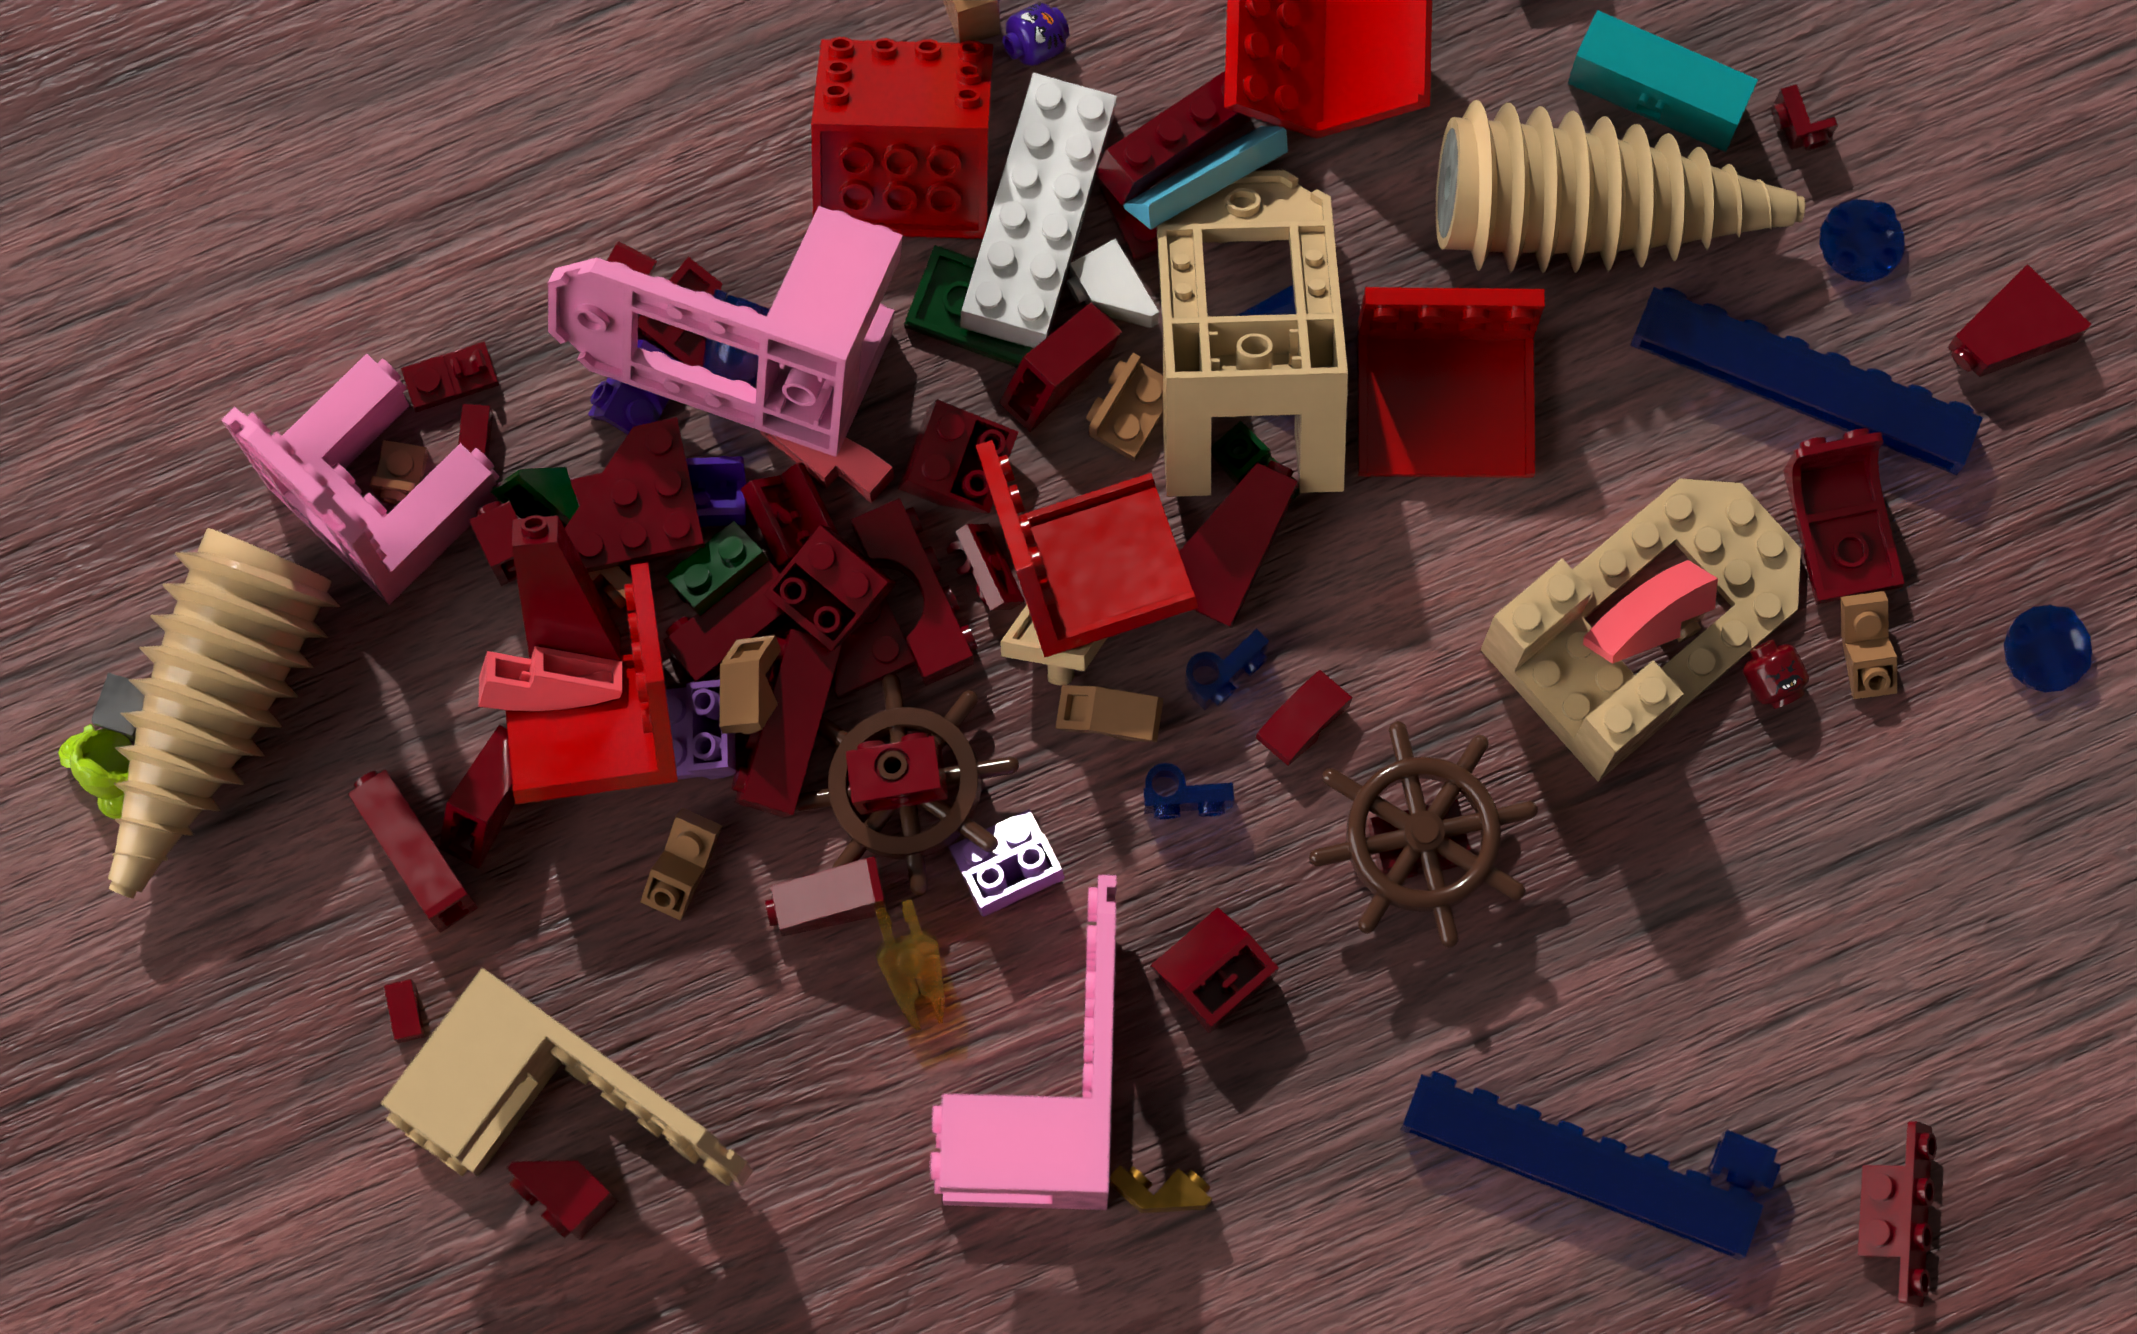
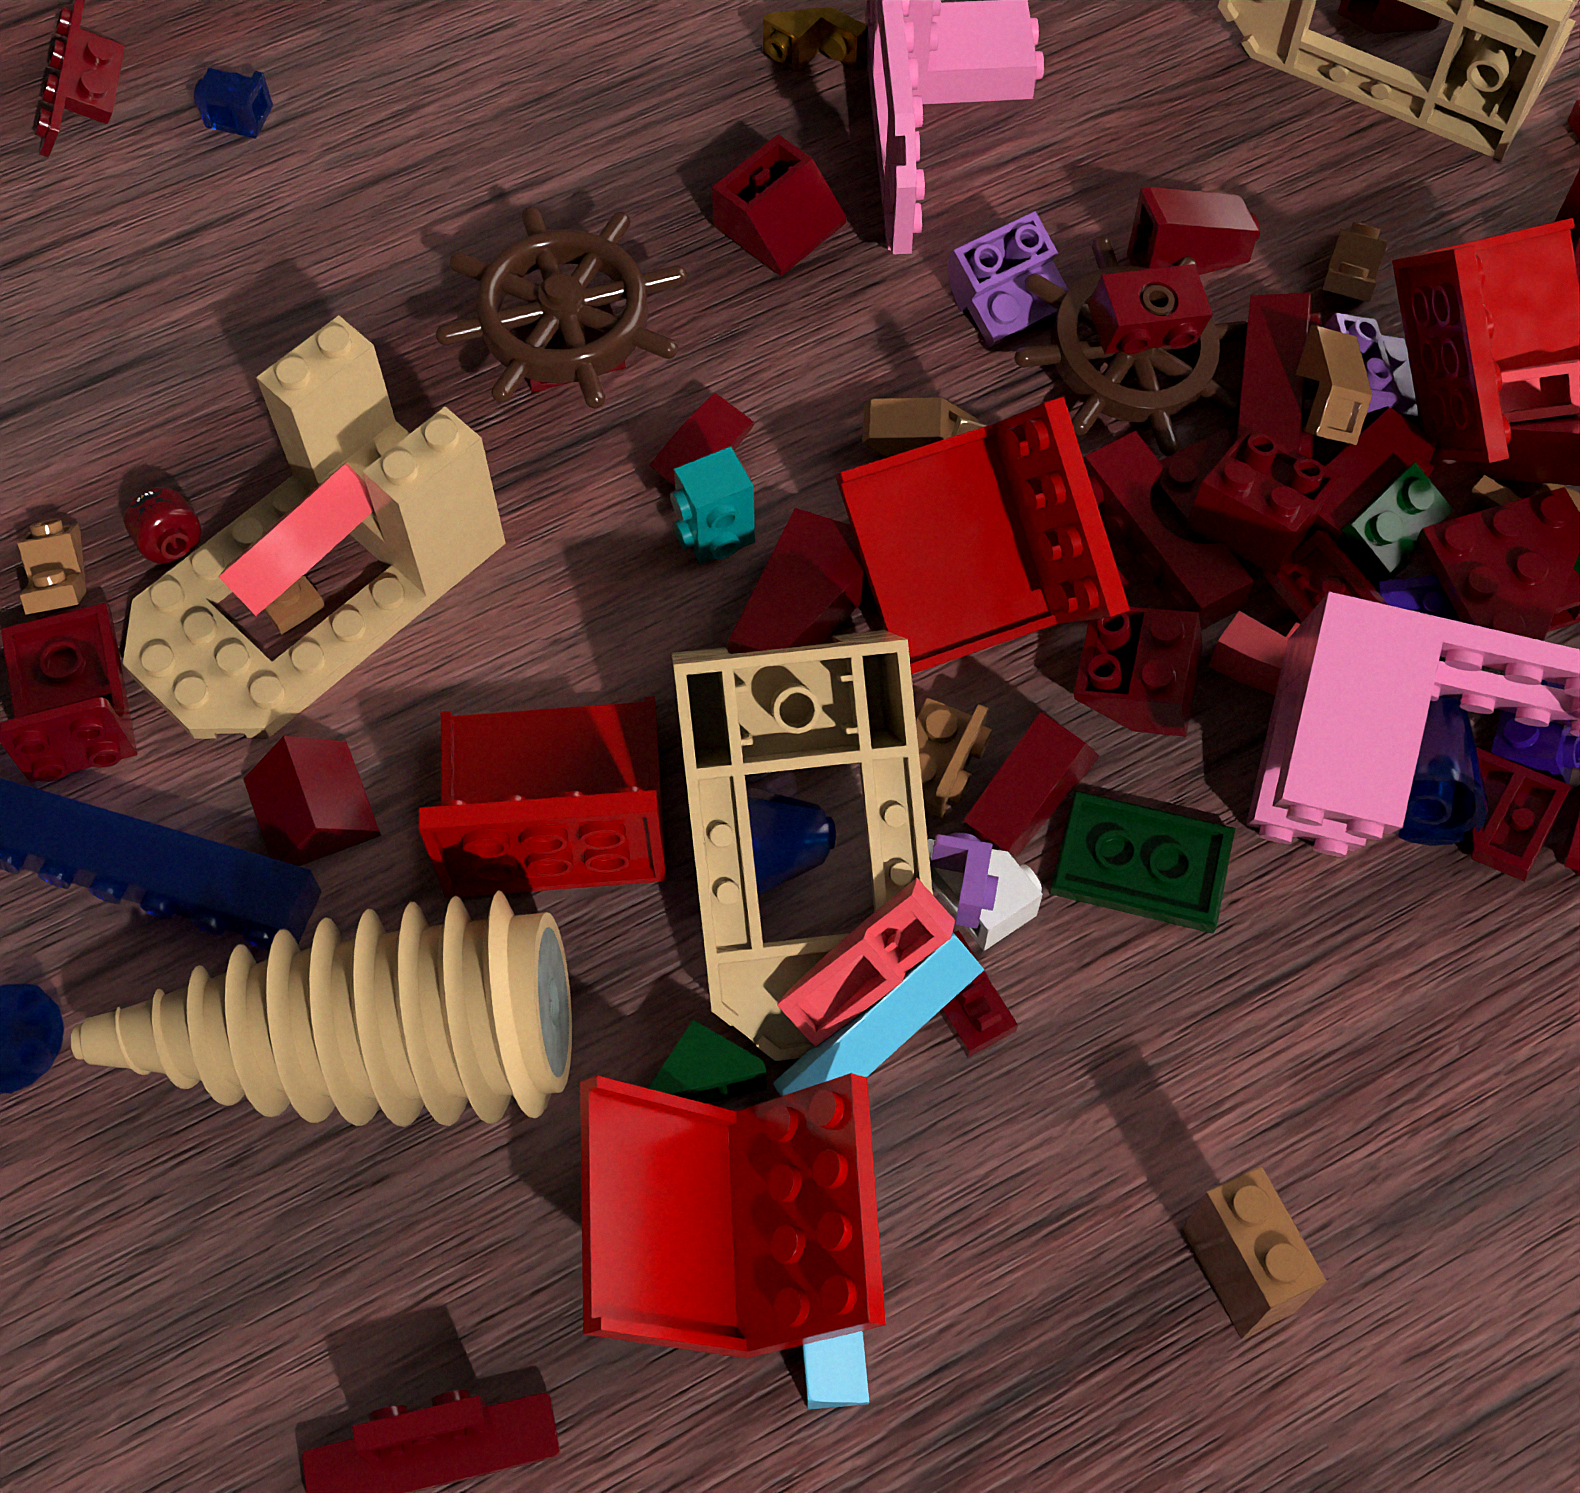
camera: 175 degrees right, 15 degrees down
(903, 134) = (1301, 1062): red bracket -> none
(910, 957) = (1094, 185): clear yellow hinge -> none
(1036, 34) = (1135, 1213): dark purple head -> none
(1038, 211) = (1093, 968): white brick -> none
(1122, 258) = (972, 857): none -> medium lavender bracket
(1168, 141) = (937, 1055): dark red brick -> none
(1206, 798) = (838, 359): clear blue plate -> none
(1210, 204) = (867, 963): none -> coral slope
(1245, 658) = (793, 482): clear blue plate -> none
(1299, 630) = (714, 506): none -> teal brick
(1336, 164) = (709, 1068): none -> dark green slope
(1581, 1166) = (402, 85): clear blue brick -> none
(1639, 412) = (309, 800): none -> dark red slope
(1661, 81) = (258, 1206): teal brick -> none
(1791, 115) = (83, 1190): dark red bracket -> none

